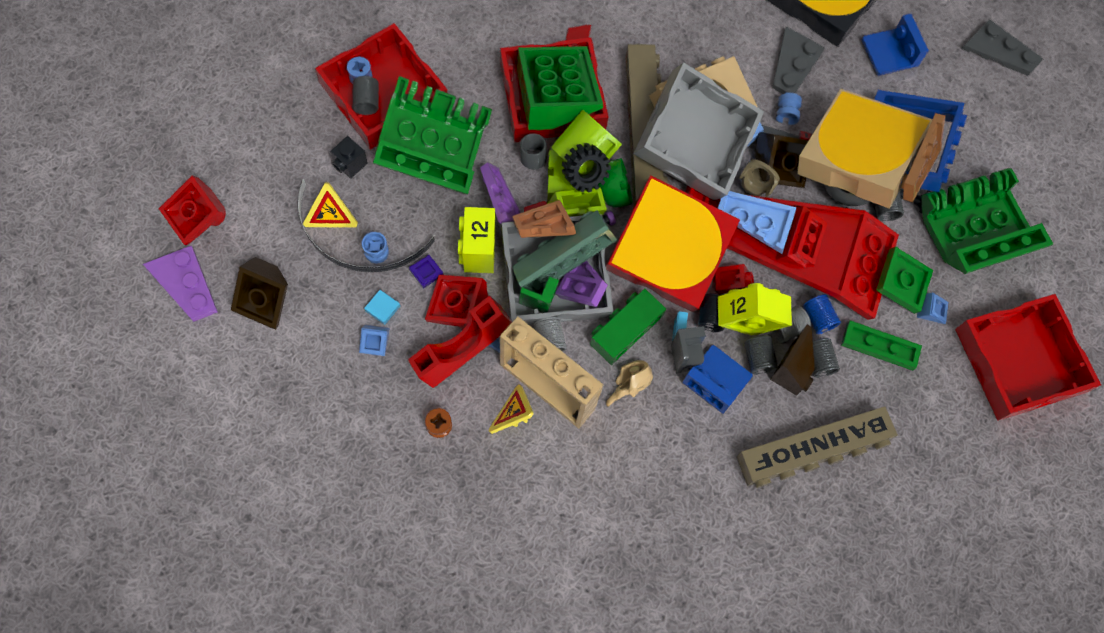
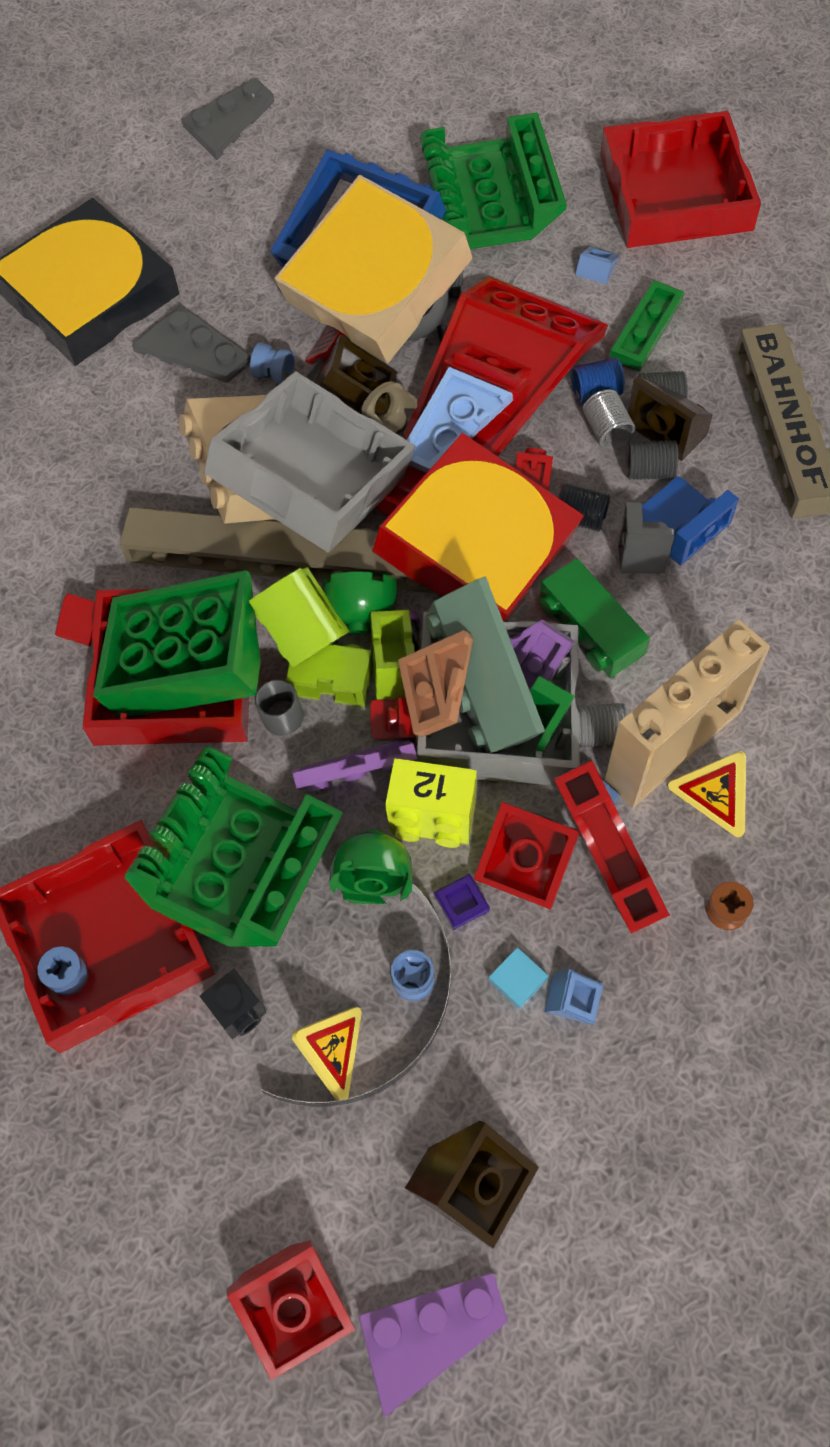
camera: 70 degrees left, 5 degrees down
(365, 95) = (116, 963): dark grey piece -> none
(437, 214) = (371, 867): none -> green cylinder
(596, 174) = (346, 615): black tyre -> none
(633, 378) = (673, 622): tan piece -> none
(680, 322) = (601, 551): medium azure tile -> none
(754, 310) = (600, 439): neon yellow brick -> none
(896, 48) = (201, 221): blue bracket -> none
(904, 280) = (559, 280): green plate -> none
(925, 158) = (401, 185): medium nougat wing -> none

